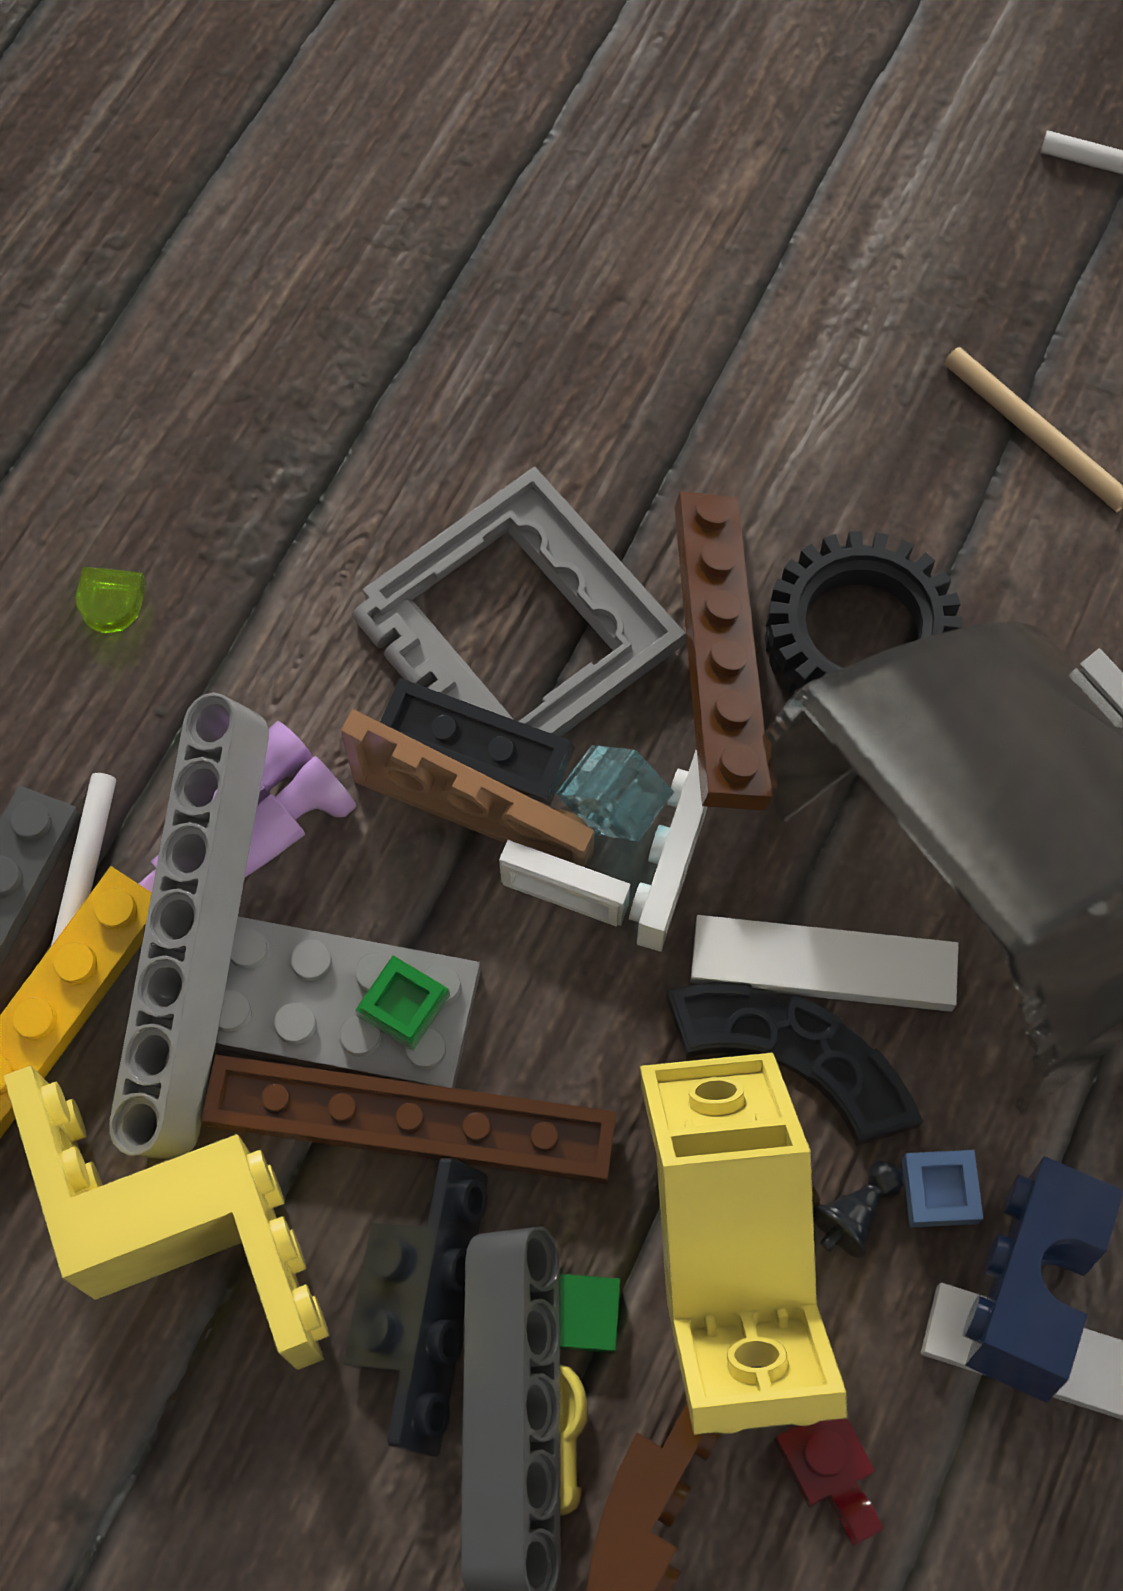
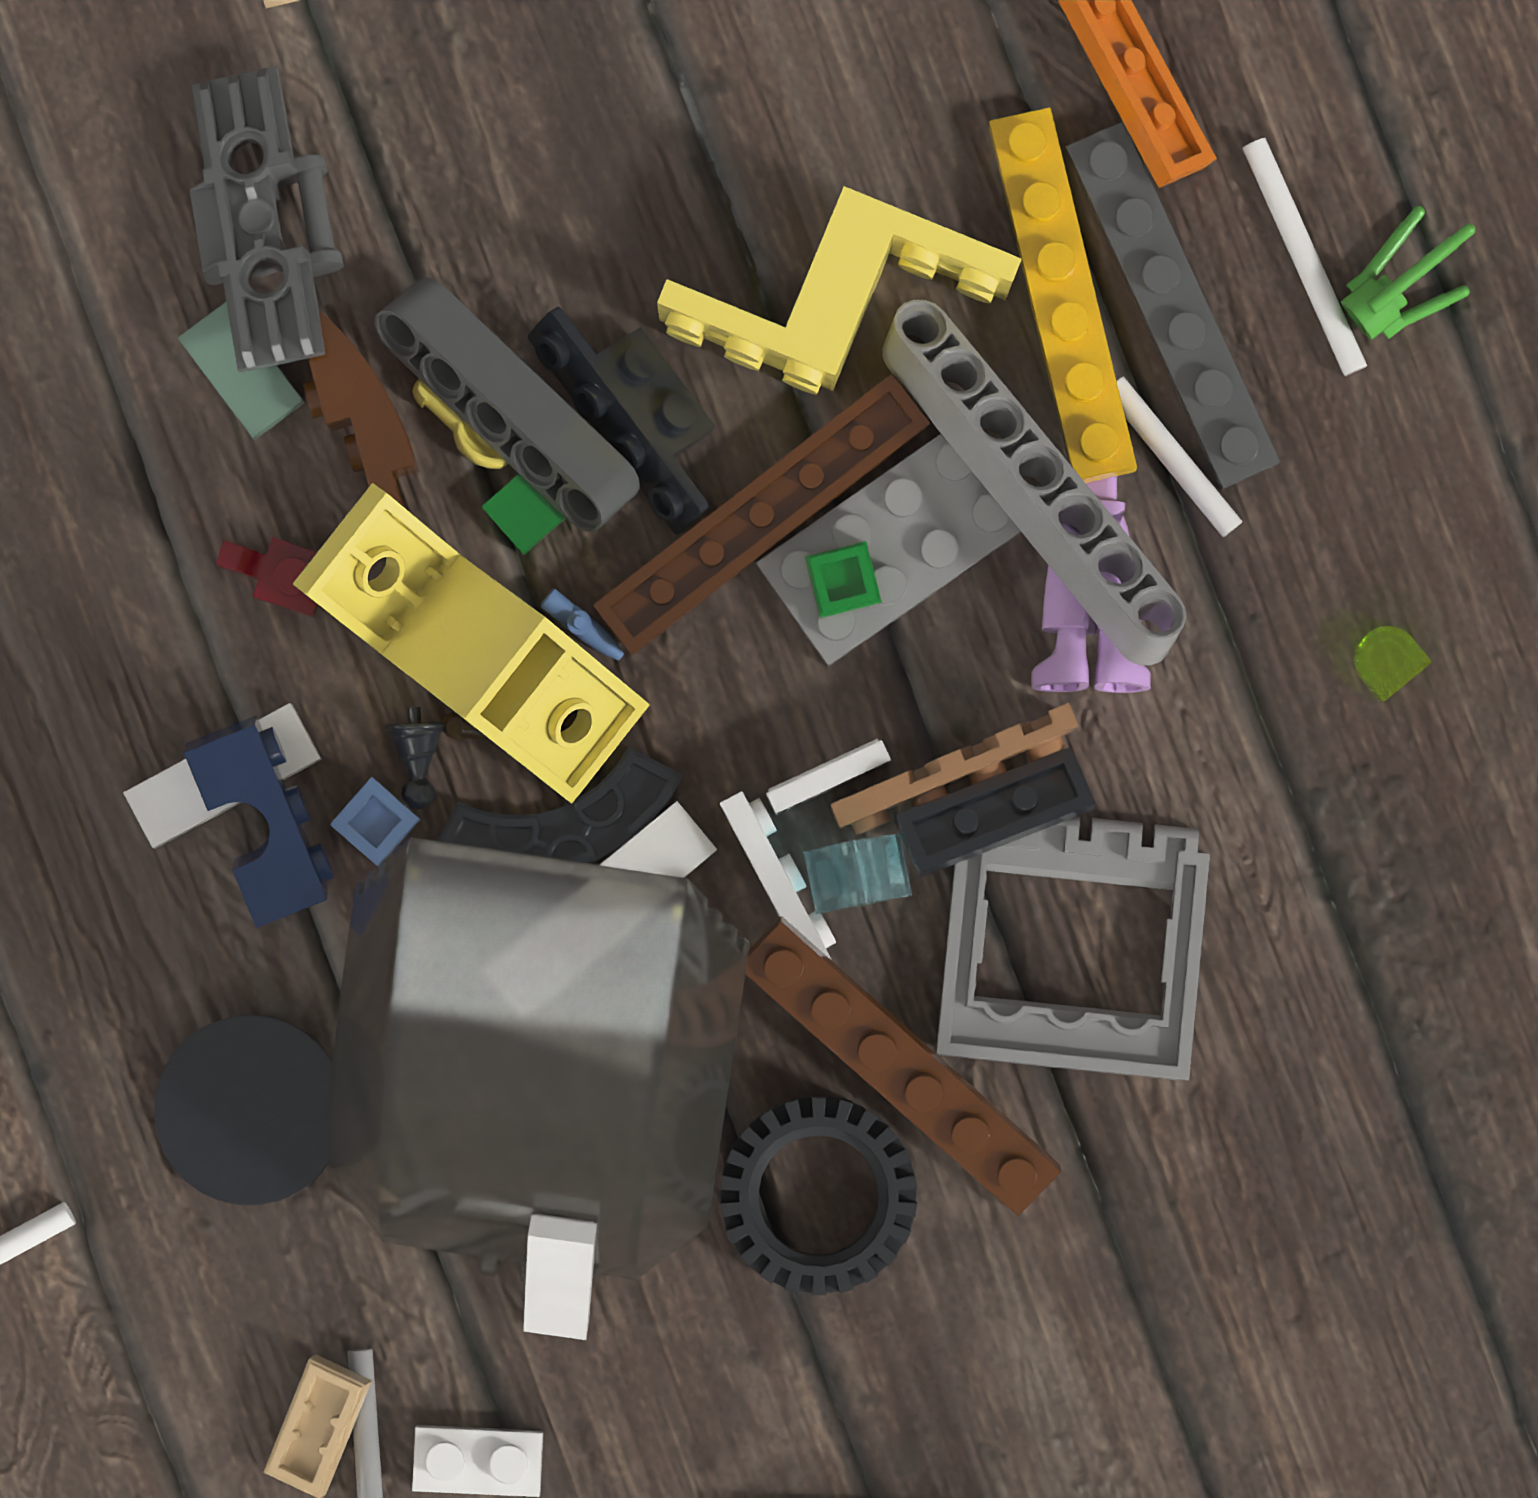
camera: 130 degrees right, 20 degrees up
(630, 1182) = (581, 624): none -> medium blue helmet

